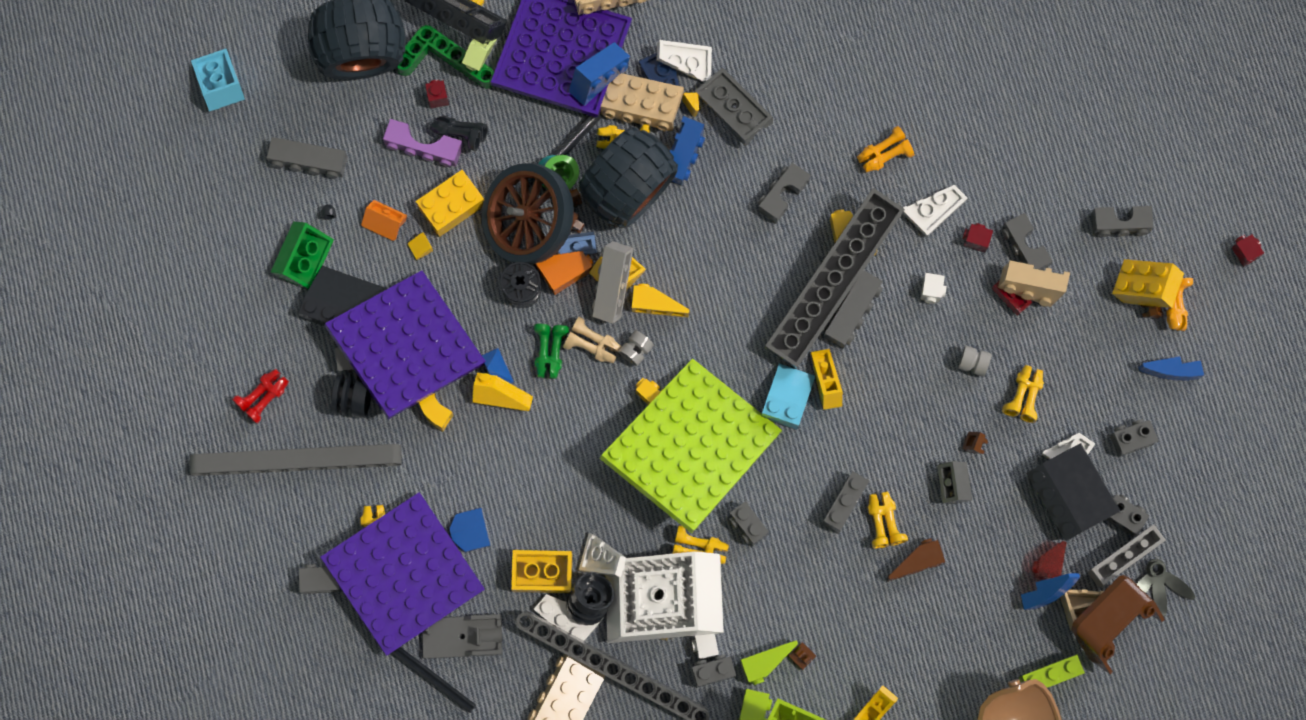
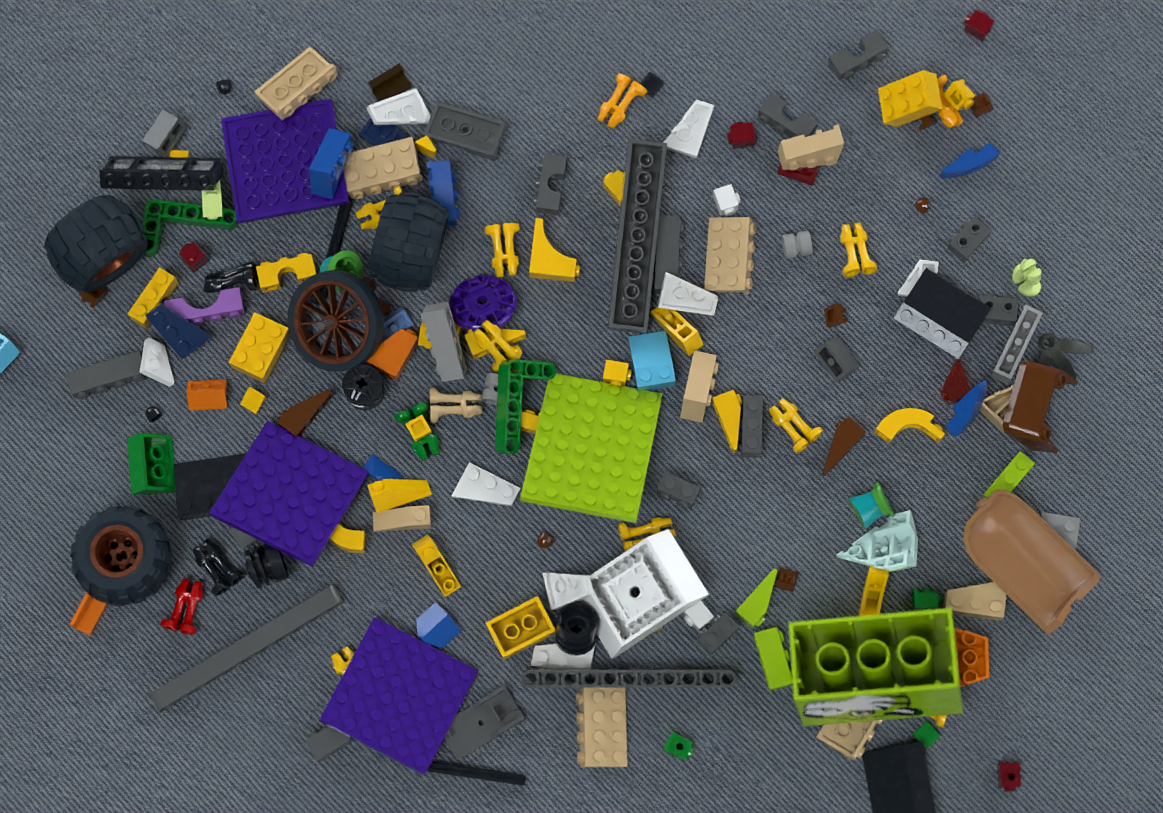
camera: 25 degrees left, 0 degrees up
(178, 356) = (88, 614): none -> orange panel
(251, 334) = (95, 544): none -> black wheel
(303, 365) = (207, 560): none -> black piece
(333, 84) = (93, 297): none -> reddish brown tile
(354, 169) = (156, 362): none -> white wing
(387, 152) = (177, 331): none -> dark blue wing
(391, 105) = (159, 287): none -> yellow arch
(454, 281) = (301, 415): none -> reddish brown slope
(493, 419) = (403, 519): none -> tan slope
(495, 144) = (270, 273): none -> yellow arch
(499, 475) = (436, 565): none -> yellow slope
(549, 346) = (418, 428): none -> yellow plate
(580, 429) = (485, 487): none -> white wing
(605, 505) = (544, 540): none -> reddish brown hinge
(646, 366) = (514, 398): none -> green beam
(649, 302) = (487, 341): none -> yellow piece
(662, 274) = (479, 312): none -> dark purple plate
(690, 31) = (389, 83): none -> dark brown panel
(711, 238) = (500, 258): none -> yellow piece
(743, 260) = (547, 262): none -> yellow arch
(750, 390) = (616, 373): none -> yellow brick
(817, 440) = (698, 386): none -> tan wedge
(832, 477) = (728, 412): none -> yellow slope
(849, 355) = (684, 296): none -> white wing
(908, 675) = (887, 547): none -> light aqua wedge
(909, 338) = (729, 254): none -> tan bracket
(914, 631) = (871, 506): none -> hat
(922, 151) = (652, 84): none -> black tile
(991, 570) = (908, 418): none -> yellow arch
(1108, 385) = (922, 205): none -> reddish brown hinge
(1173, 500) = (1030, 275): none -> yellowish green piece
(1195, 304) = (959, 95): none -> yellow brick
(1210, 322) = (981, 105): none -> reddish brown tile

